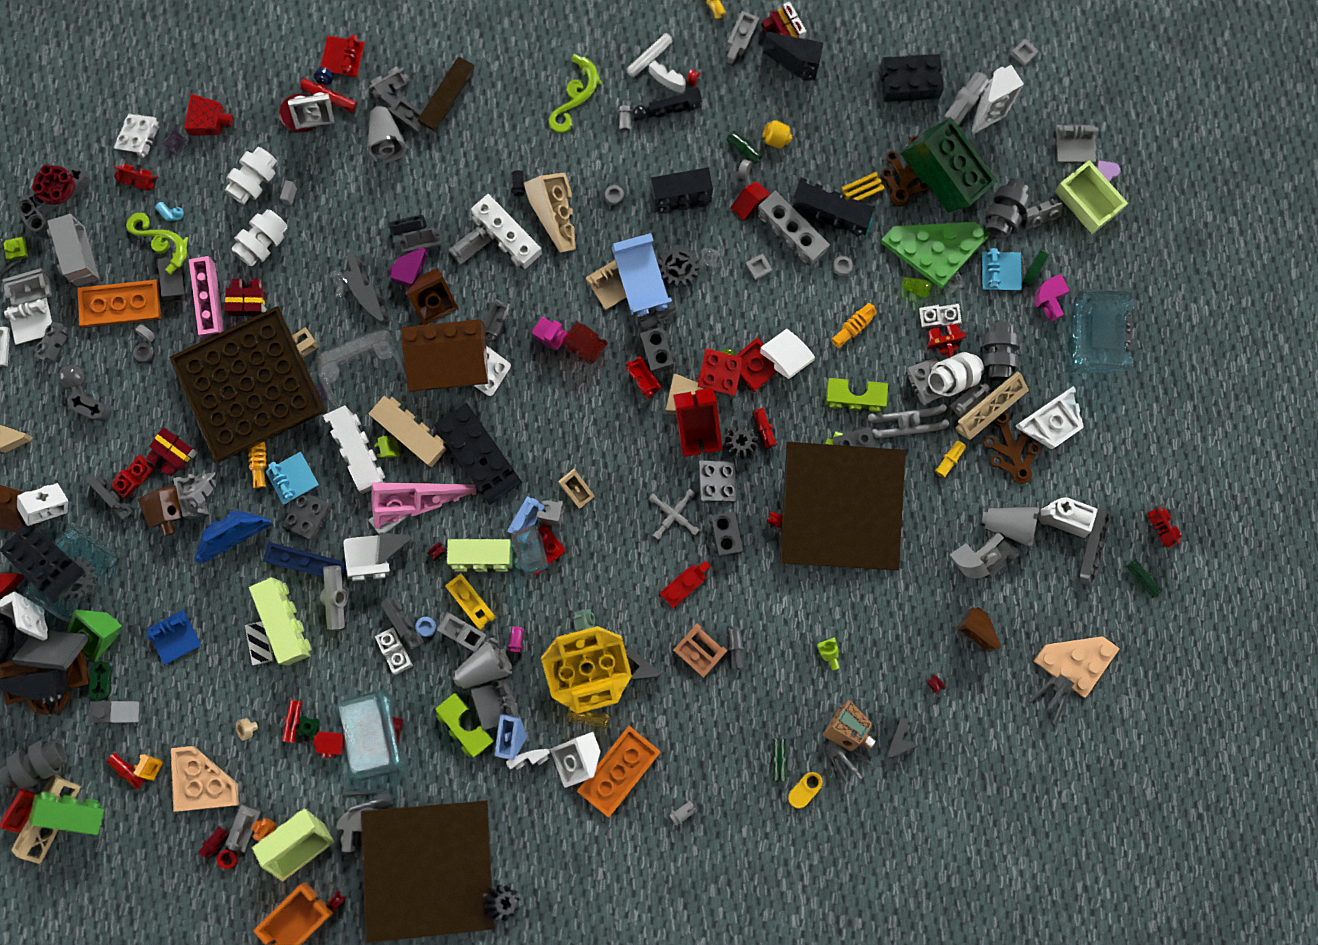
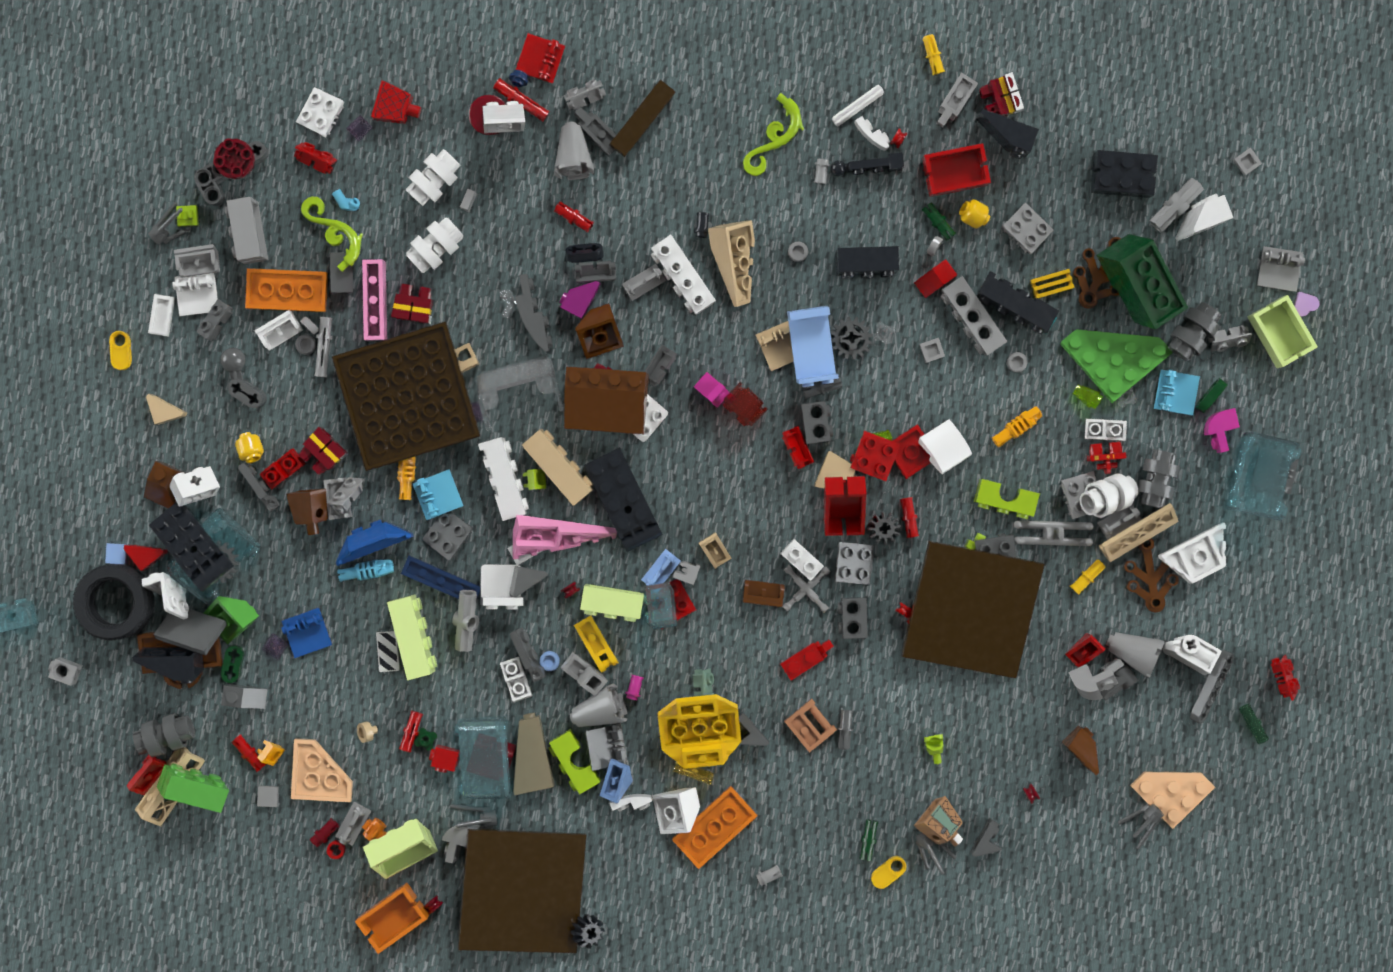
camera: 10 degrees right, 10 degrees up
(96, 460) = (249, 447): none -> yellow head
(115, 342) = (279, 330): none -> white hinge
(143, 656) = (275, 646): none -> clear purple slope
(150, 813) = (268, 796): none -> light grey tile
(161, 351) = (325, 322): none -> light grey pin
(228, 563) = (367, 570): none -> medium azure hinge
(393, 194) = (573, 216): none -> red pin
(420, 728) = (532, 758): none -> dark tan slope
(631, 525) = (763, 593): none -> reddish brown hinge
(664, 484) = (802, 559): none -> white brick
(752, 96) = (956, 170): none -> red piece
(829, 141) = (1027, 228): none -> light grey hinge
(962, 530) = (1084, 650): none -> red slope

